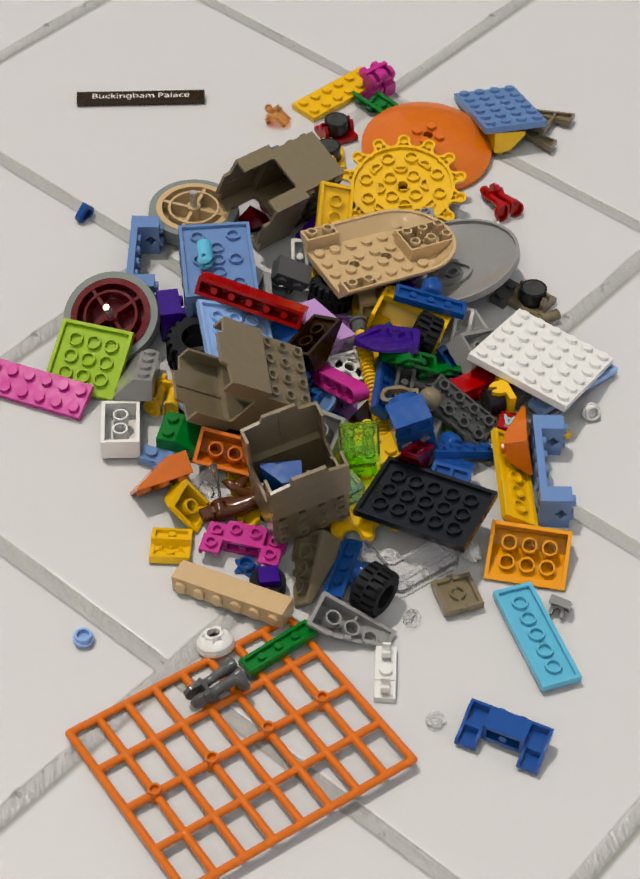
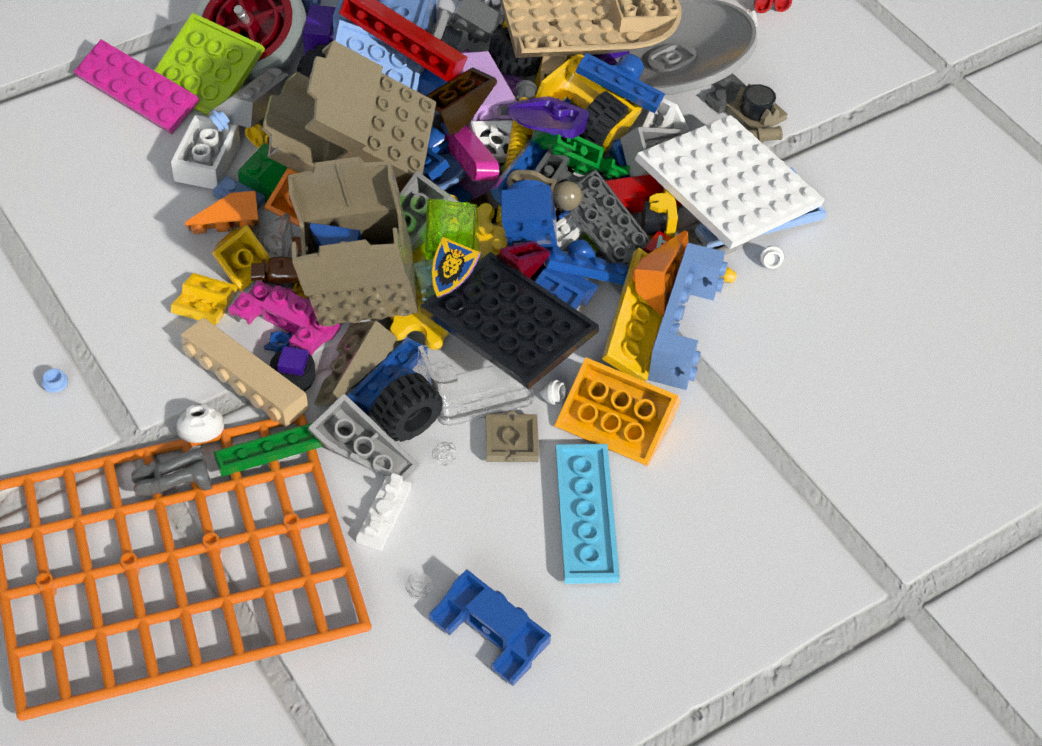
camera: 15 degrees right, 5 degrees up
(127, 400) = (220, 120): none -> light blue plate
(370, 472) = (452, 266): none -> shield
(559, 603) = (631, 481): light grey tile -> none

